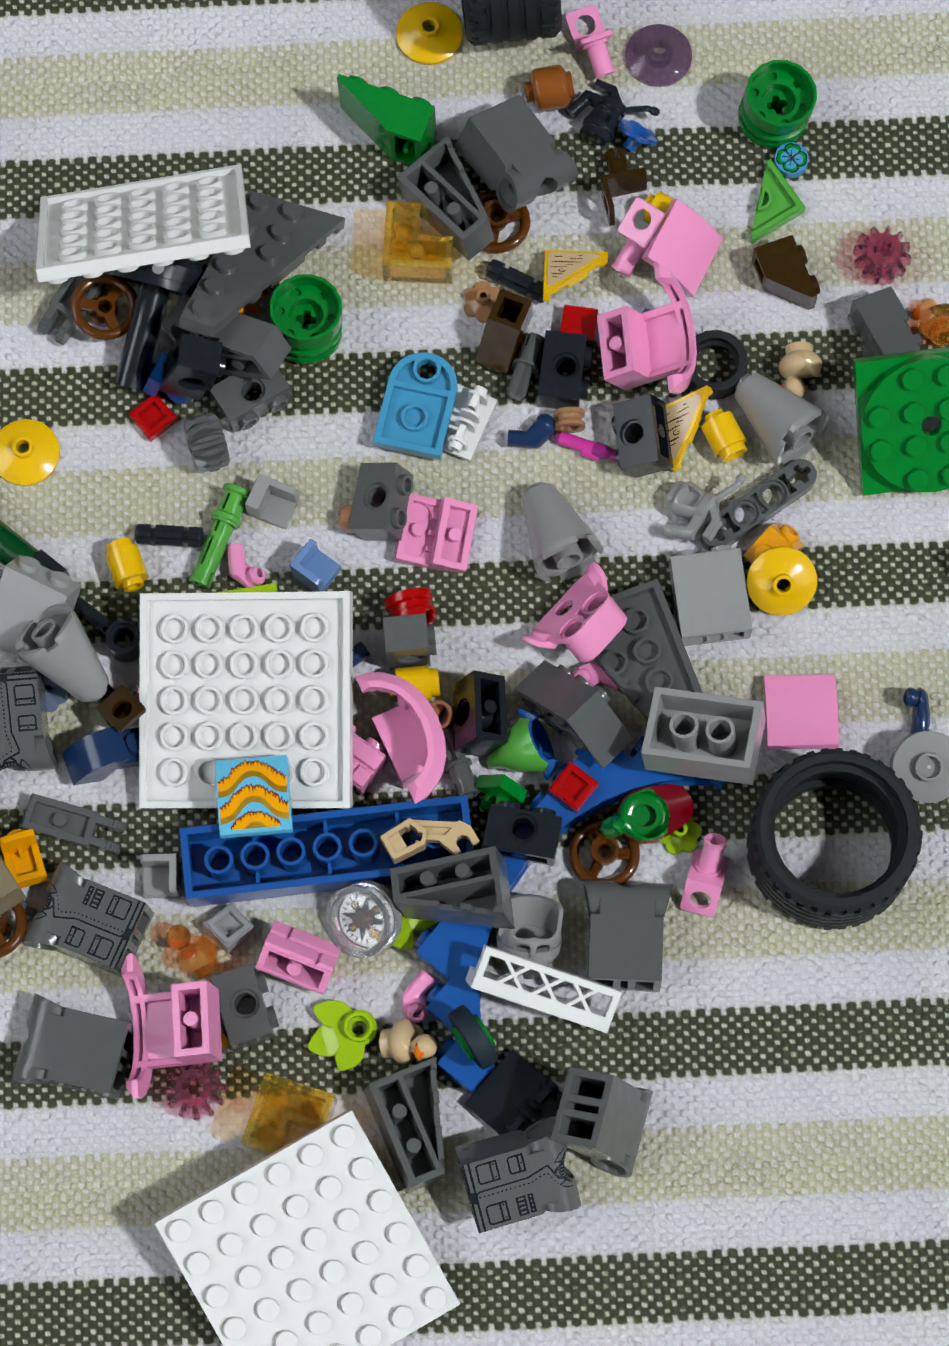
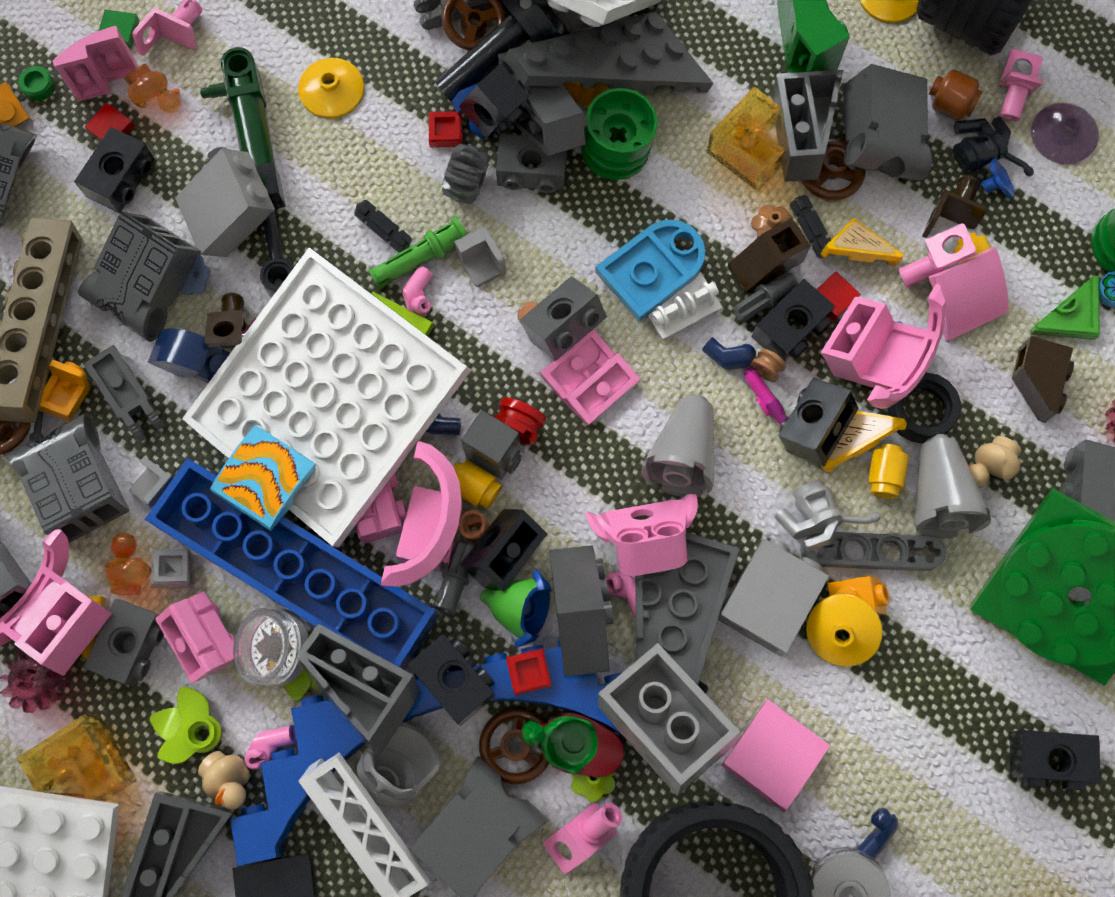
camera: 35 degrees right, 0 degrees up
(63, 653) = (211, 252): light grey cone -> none
(126, 564) = (330, 223): yellow brick -> none
(314, 567) = (471, 332): medium blue panel -> none
(441, 832) = (386, 627): tan piece -> none
(473, 1037) = (266, 825): black wheel -> none
(499, 788) = (467, 627): green tile -> none

